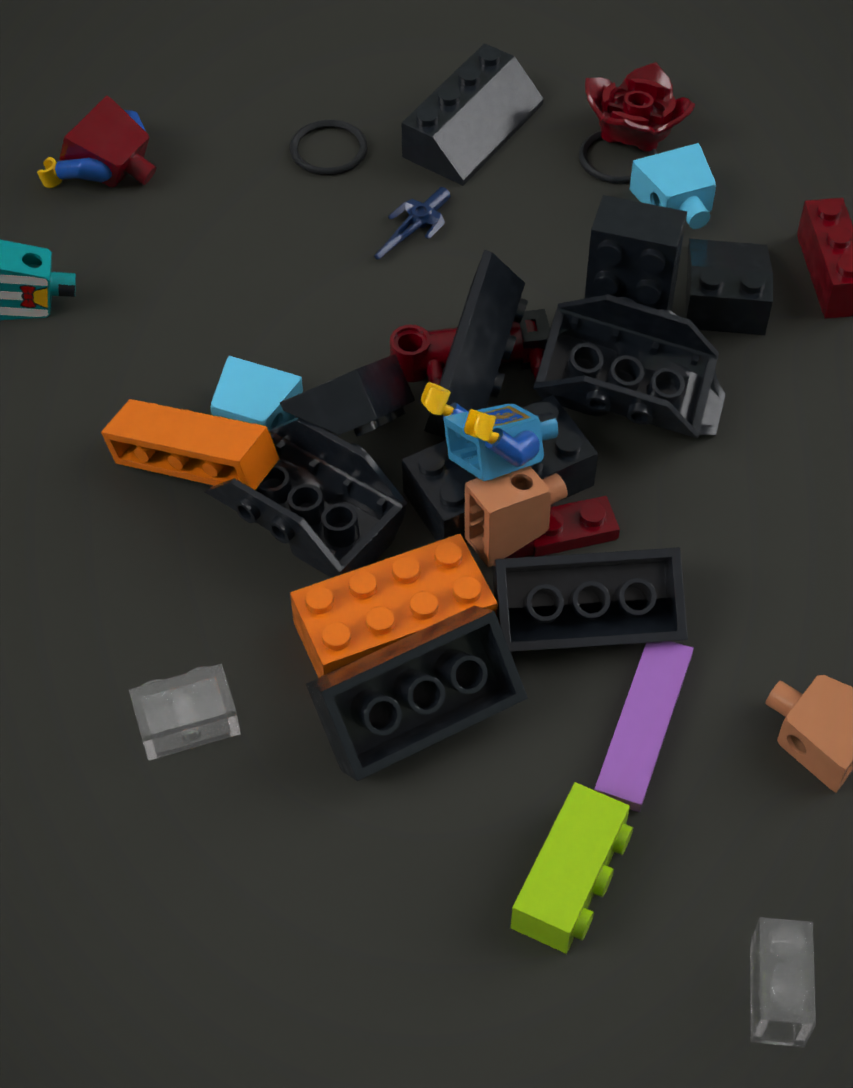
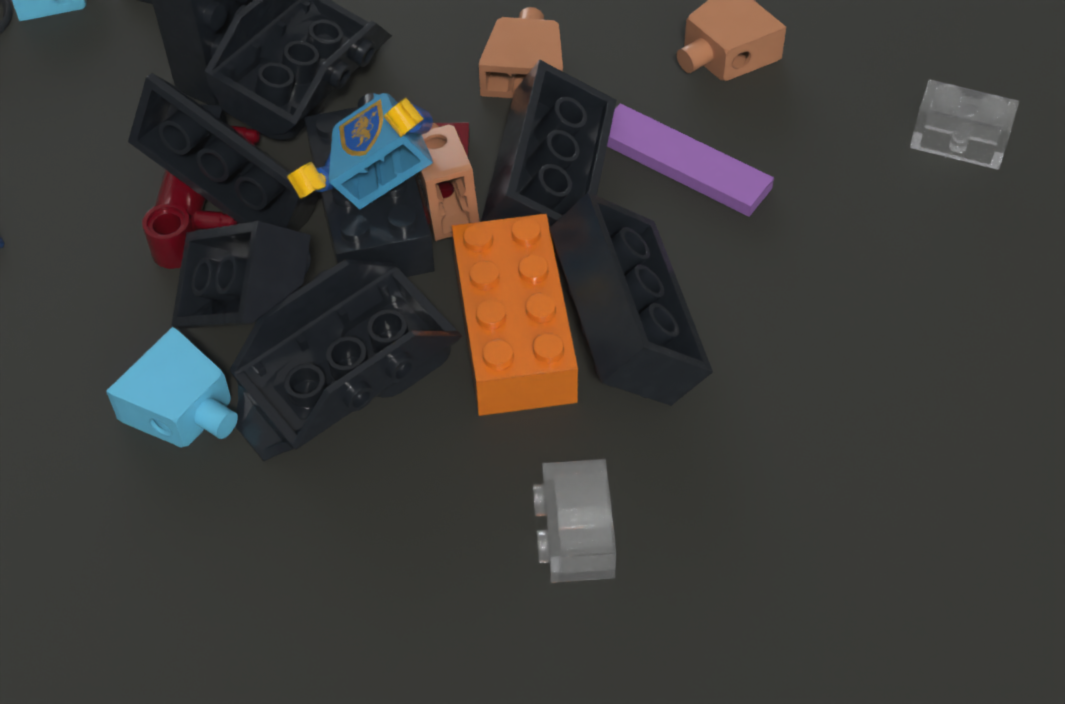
camera: 75 degrees left, 0 degrees up
(190, 444) = (226, 449): orange brick -> none
(572, 868) = (829, 238): lime brick -> none
(722, 552) = (516, 49): none -> nougat torso

